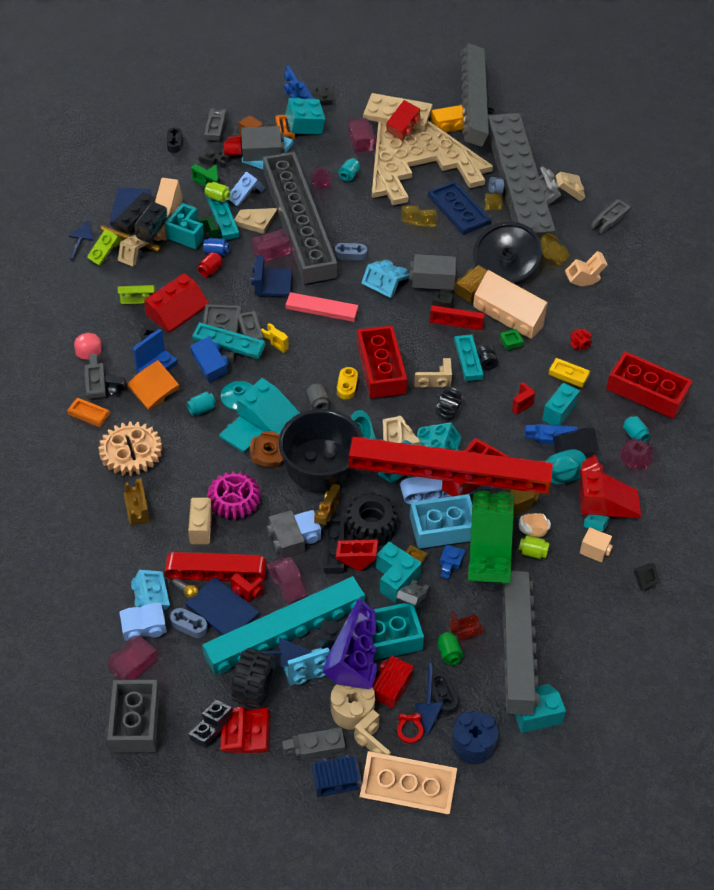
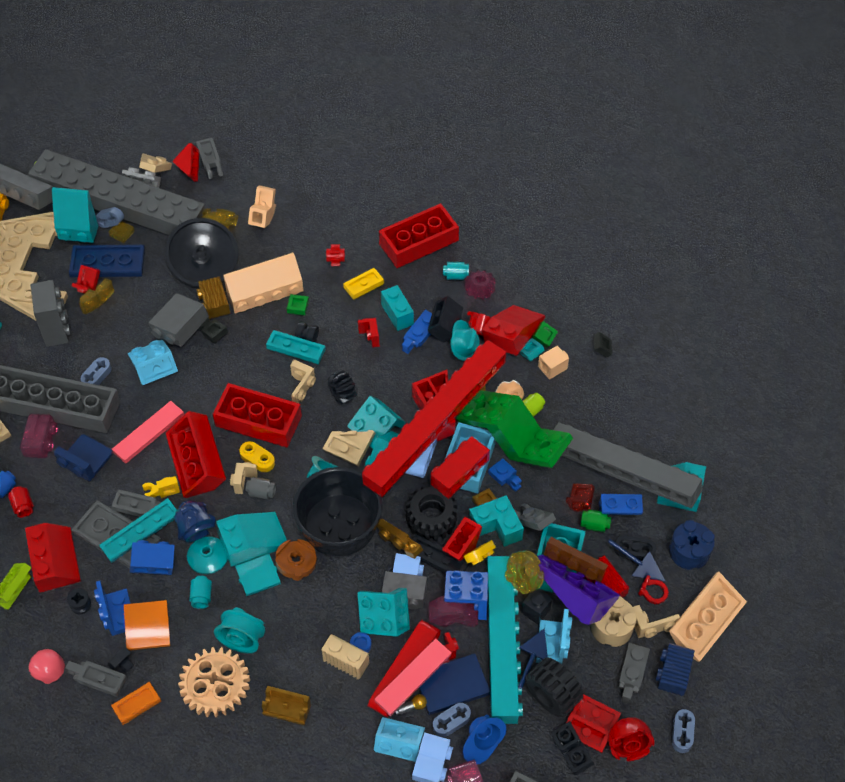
camera: 60 degrees left, 5 degrees up
(178, 439) = (239, 631): none -> teal wheel
(179, 649) = (484, 738): none -> blue piece
(204, 571) = (412, 677): none -> coral tile
(221, 529) = (361, 641): none -> blue tile
(234, 488) = (347, 609): dark pink gear -> none
(243, 762) = (630, 739): none -> red cylinder
(253, 365) = (193, 520): none -> dark blue helmet
(254, 528) = (384, 612): none -> teal bracket
(279, 809) = (678, 731): none -> sand blue beam
(309, 574) = (468, 588): none -> blue bracket
(320, 343) = (195, 455): none -> red slope
(321, 377) = (241, 472): none -> tan bracket
(346, 602) = (516, 575): none -> clear yellow plate
(361, 574) = (480, 552): none -> yellow plate
(374, 192) = (50, 313): none -> dark grey brick
(382, 636) = (575, 559): none -> reddish brown plate
(419, 511) = (459, 467): none -> red brick
(431, 202) = (86, 279): none -> red bracket
(457, 318) = (244, 331): red plate -> none
(471, 159) = (74, 215): none -> teal slope
(476, 659) = (621, 504): none -> blue bracket
(591, 204) = (189, 161): none -> red slope
(621, 525) = (544, 334): none -> green plate

